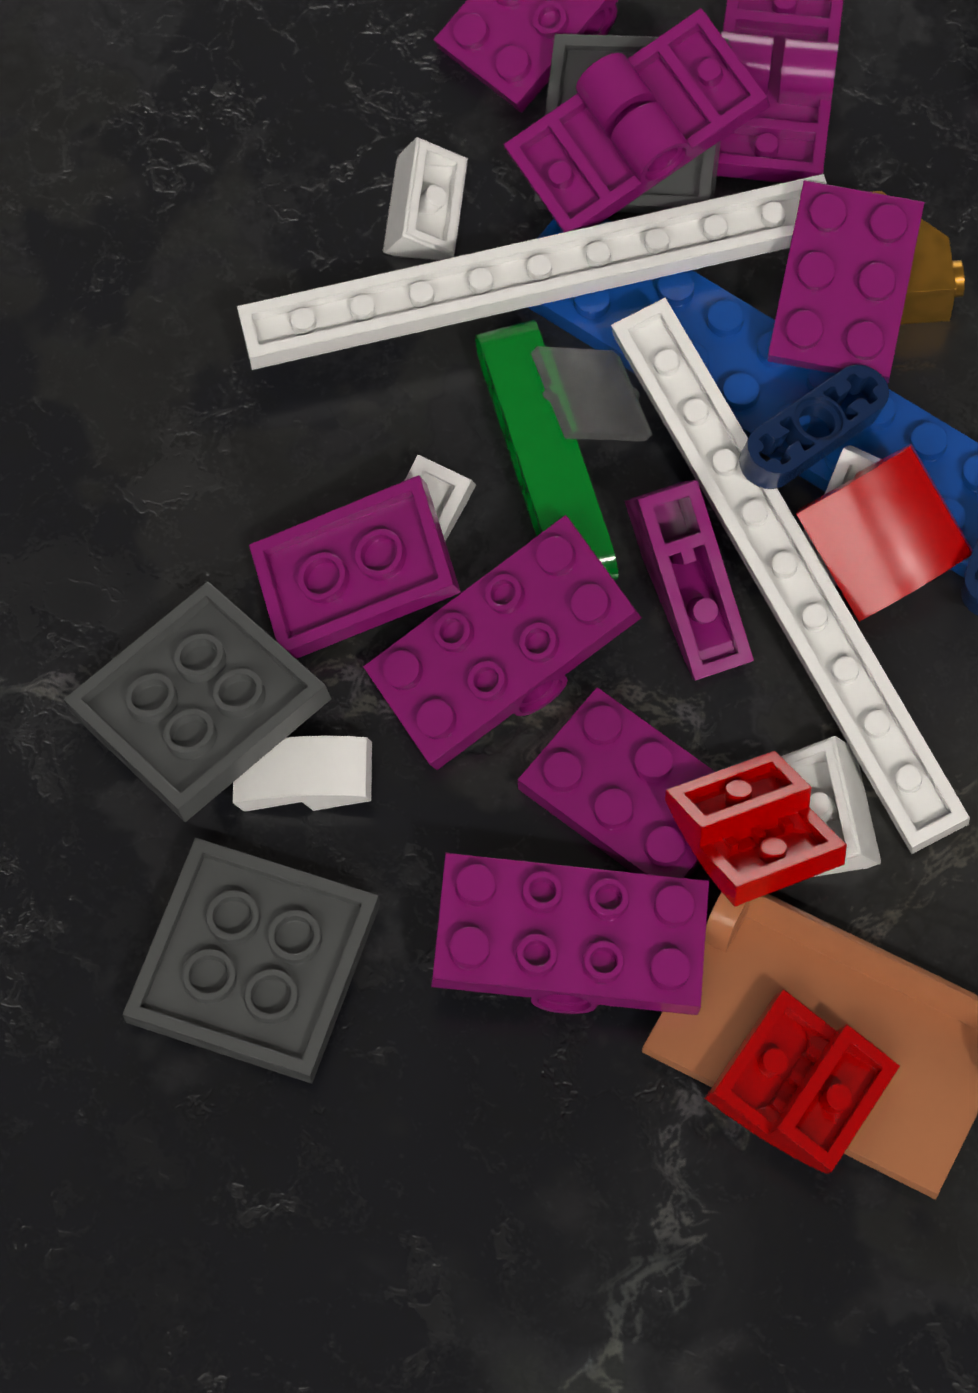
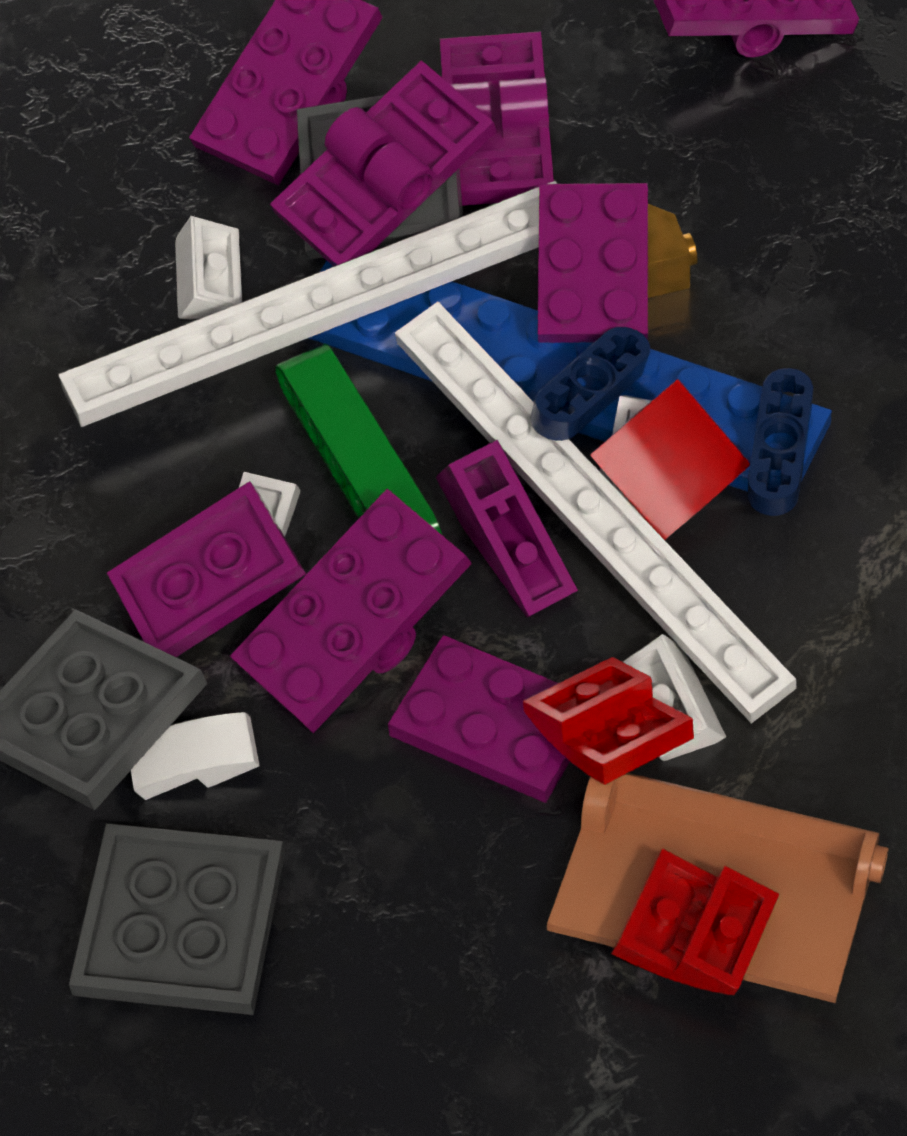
camera: 10 degrees left, 10 degrees down
(571, 935) = (463, 840): magenta plate -> none
(591, 394) = (388, 395): clear piece -> none

